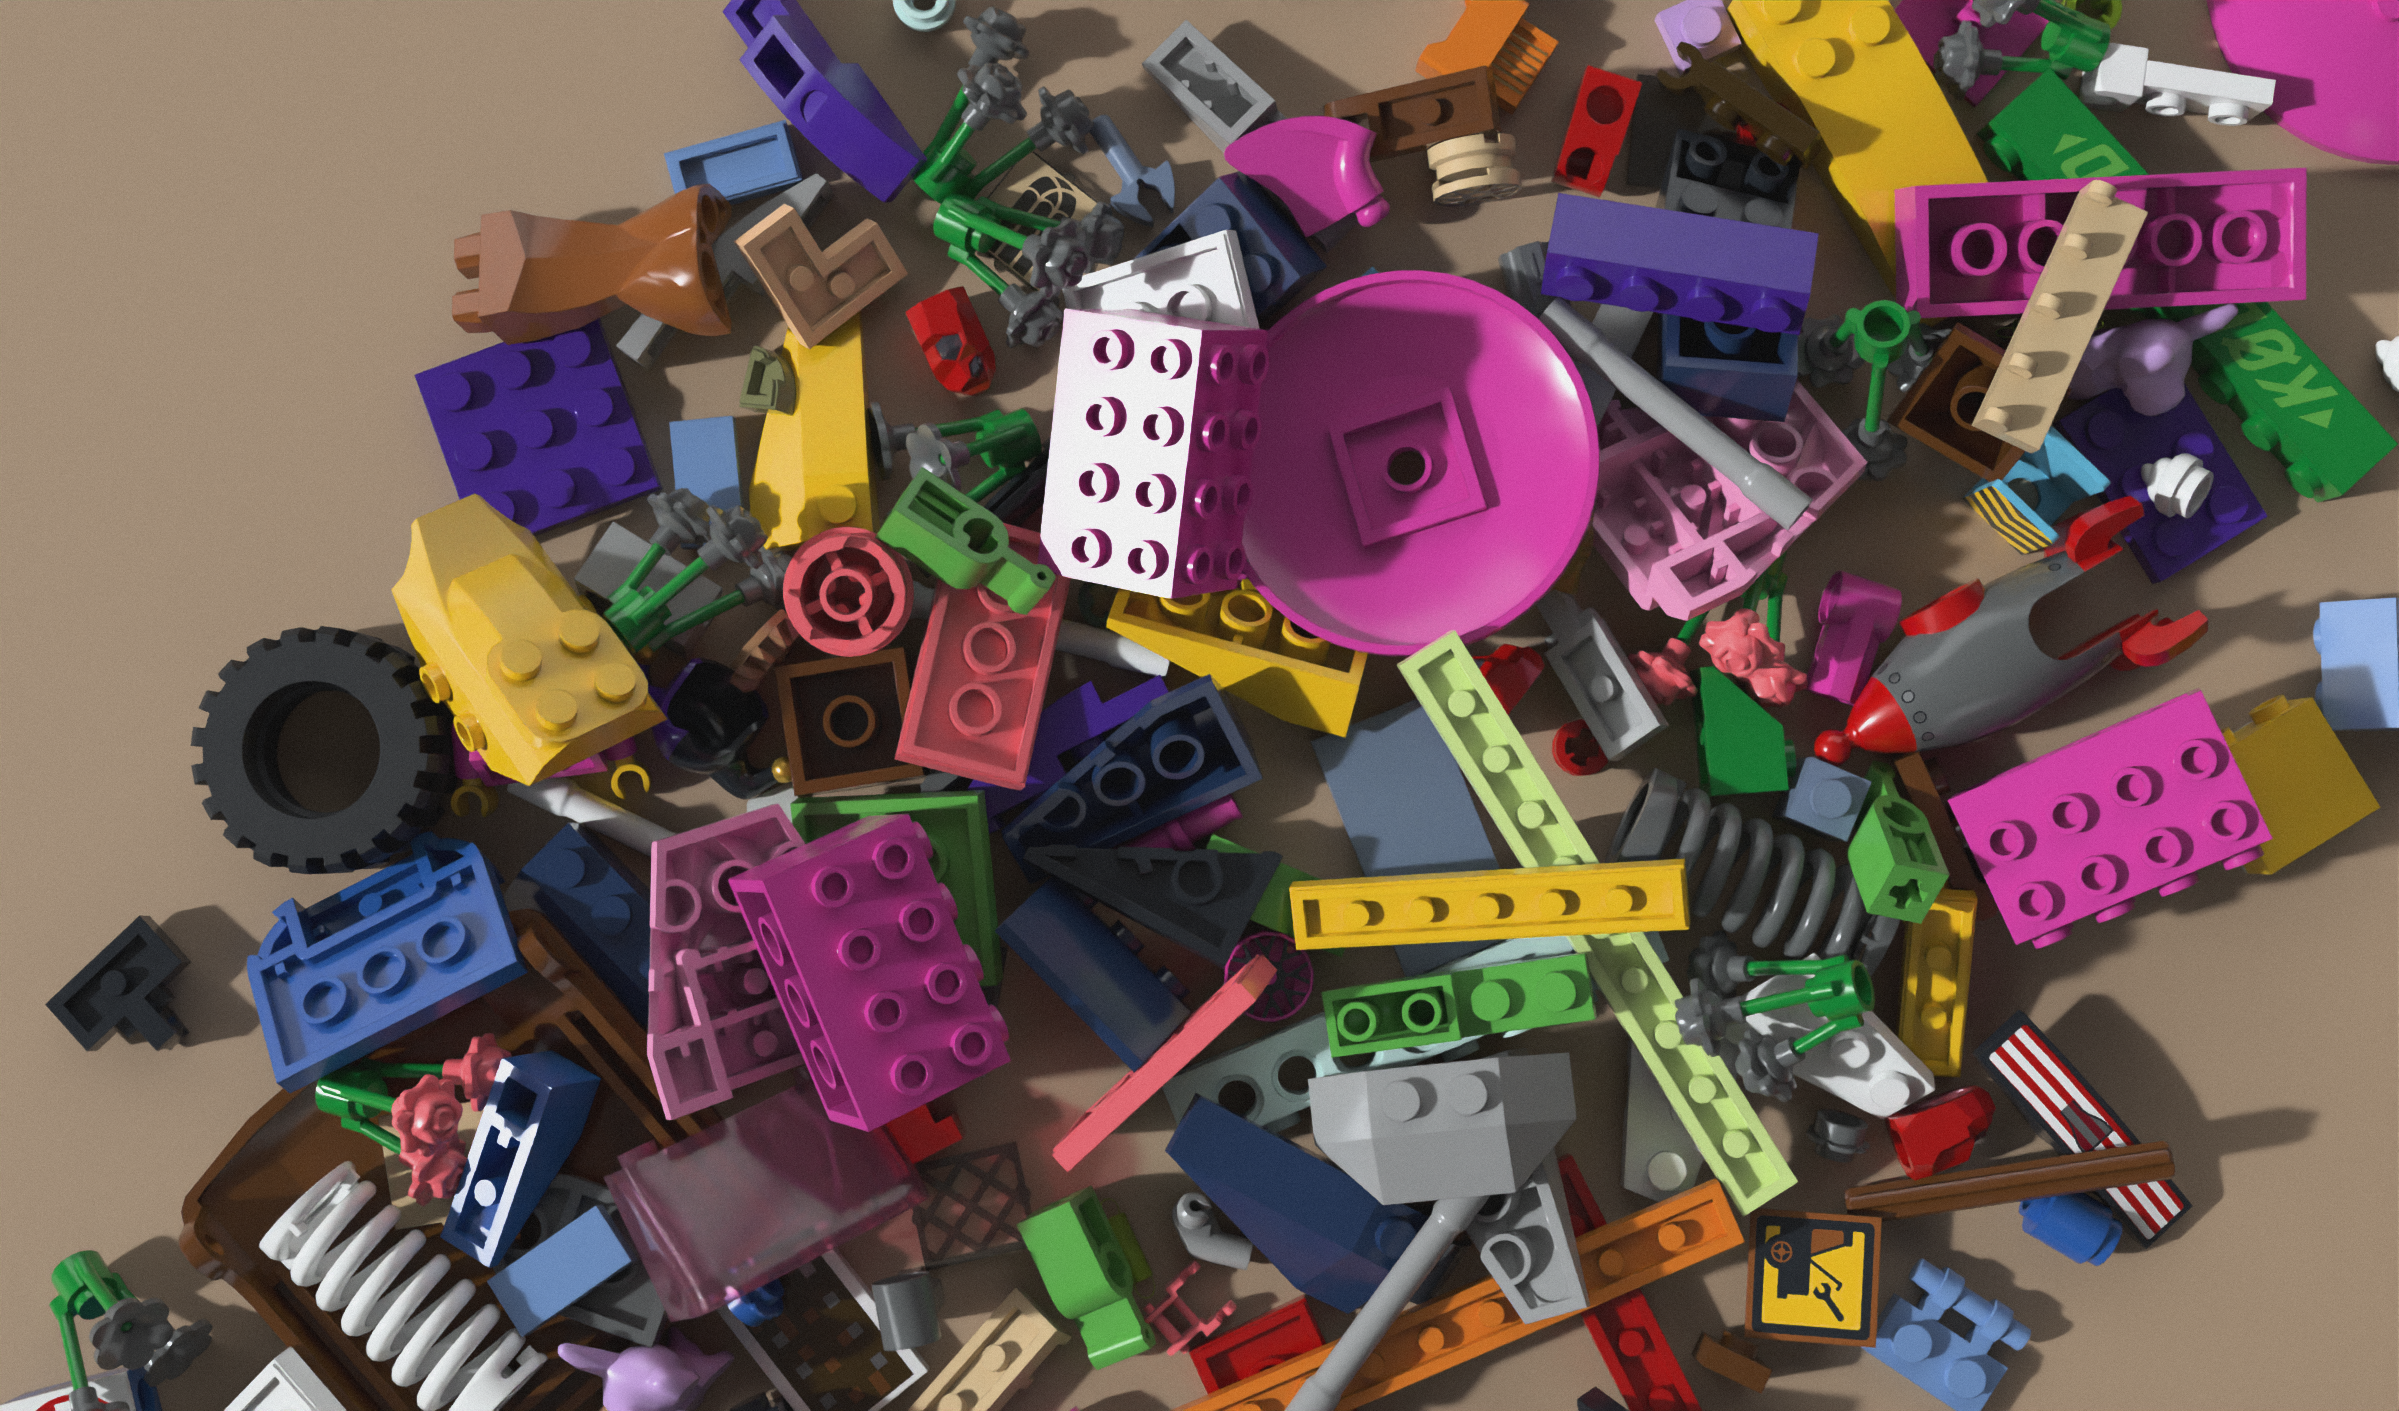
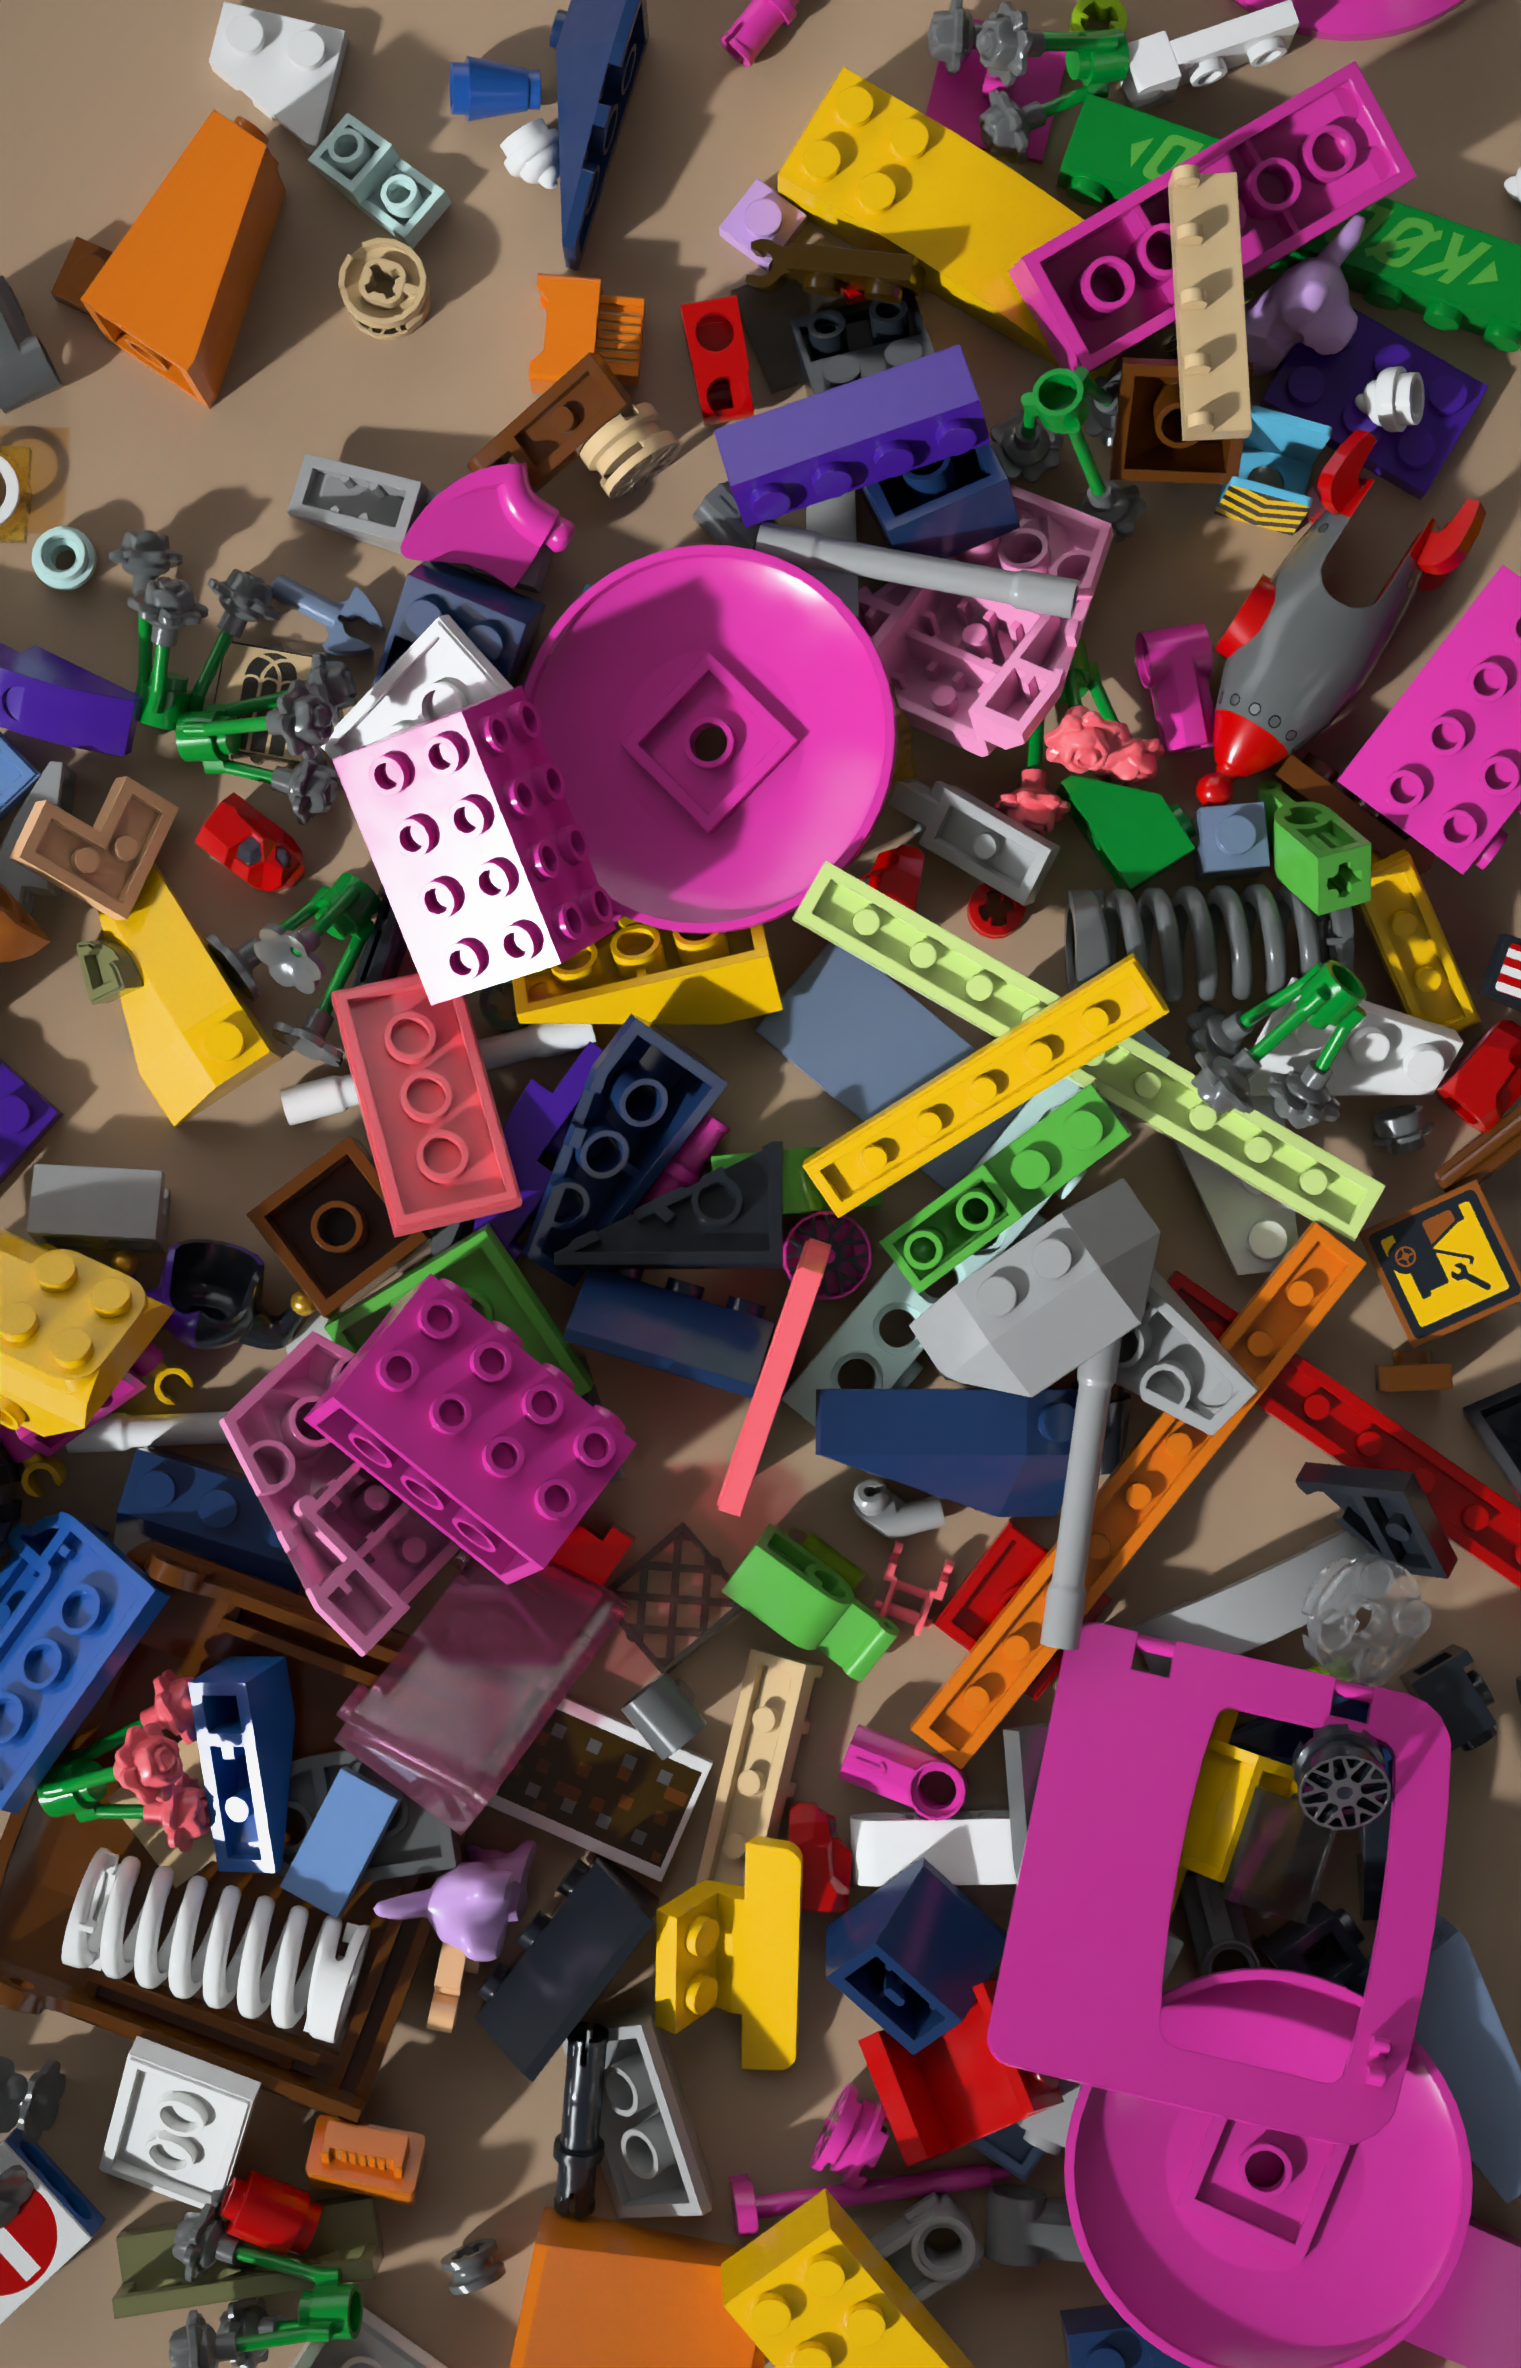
camera: 20 degrees left, 0 degrees up
(707, 461) = (100, 1086): medium blue tile -> none
(732, 535) = (145, 1116): plant -> none
(759, 1304) = (528, 1779): blue plate -> none
(764, 652) = (232, 1201): medium nougat gear -> none
(848, 592) = (275, 1112): coral cone -> none
(961, 543) = (352, 1016): bright green piece -> none

